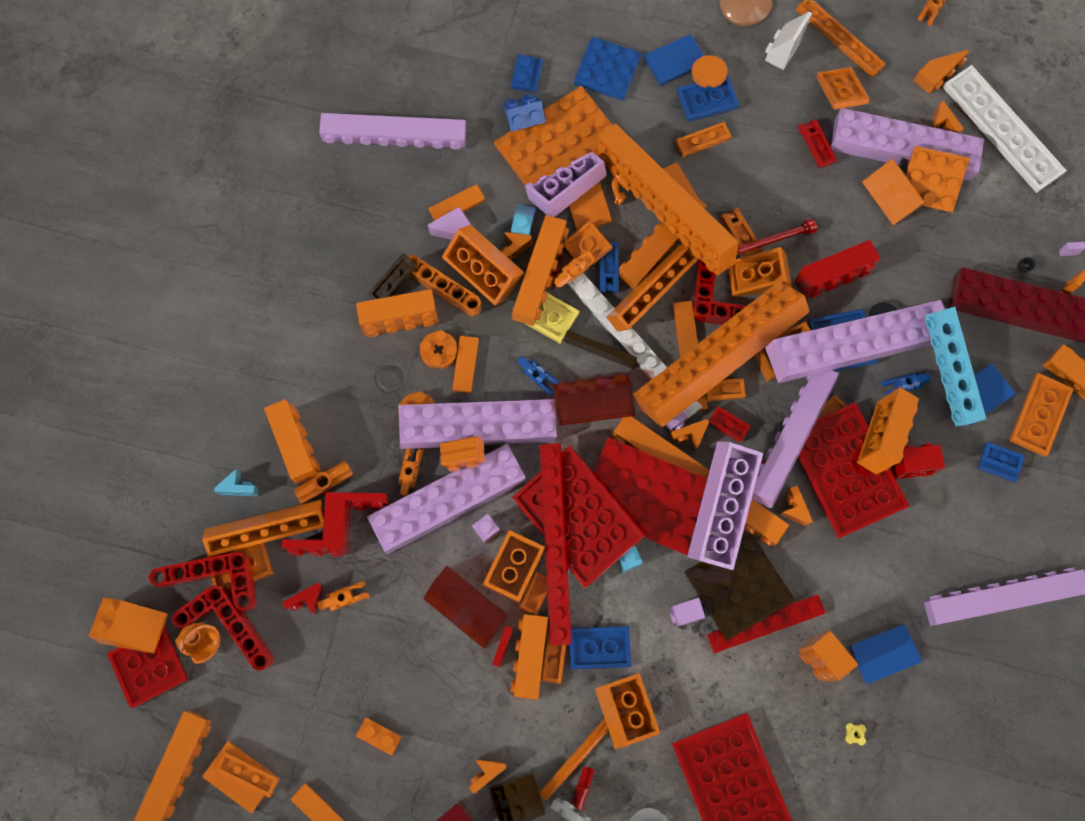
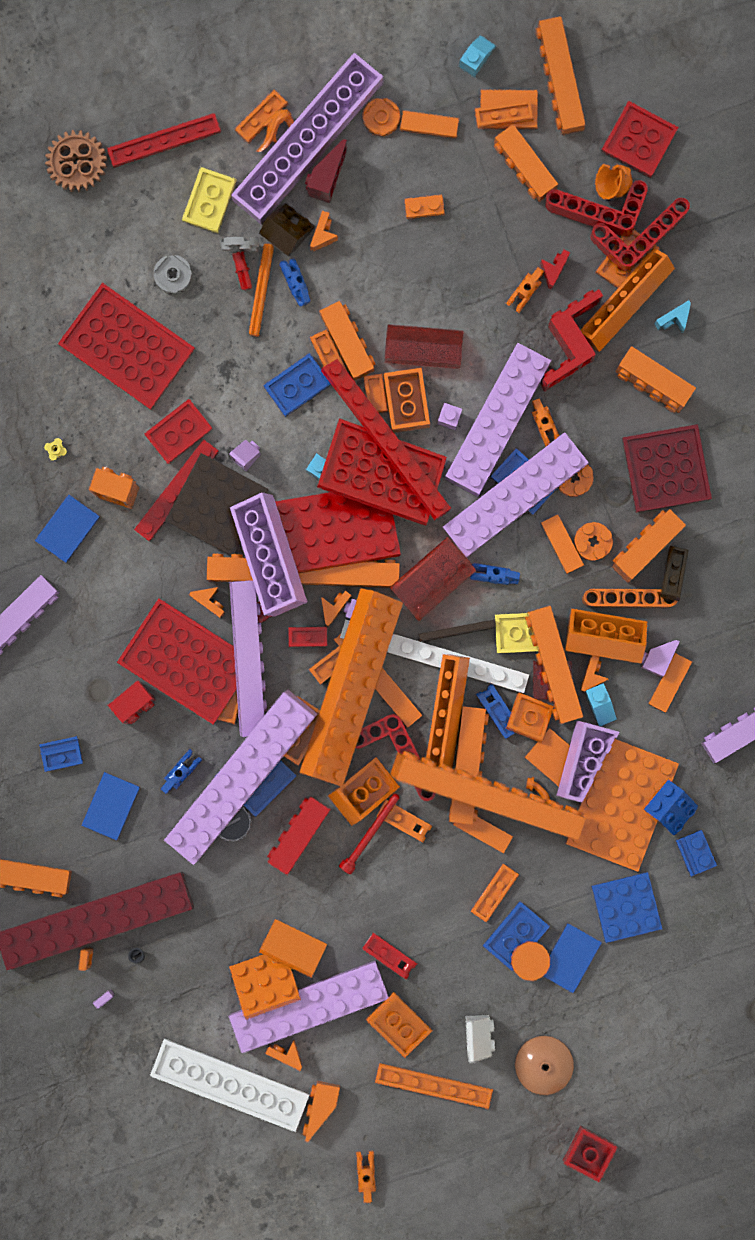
camera: 150 degrees right, 10 degrees up
(127, 625) = (676, 156): orange slope -> none
(261, 714) = (525, 163): none -> orange brick
(312, 488) = (612, 356): orange piece -> none
(336, 368) = (666, 468): none -> dark red plate
(462, 453) = (510, 459): orange brick -> none
(502, 646) = (374, 334): red tile -> none
(540, 744) = (295, 282): none -> blue hinge
(574, 269) = (525, 683): orange hinge -> none
(627, 711) = (244, 347): orange brick -> none
(733, 675) = (178, 431): none -> red plate
(888, 431) = (171, 710): orange brick -> none
(965, 398) = (110, 776): medium azure brick -> none
(1041, 414) = (49, 820): orange plate -> none

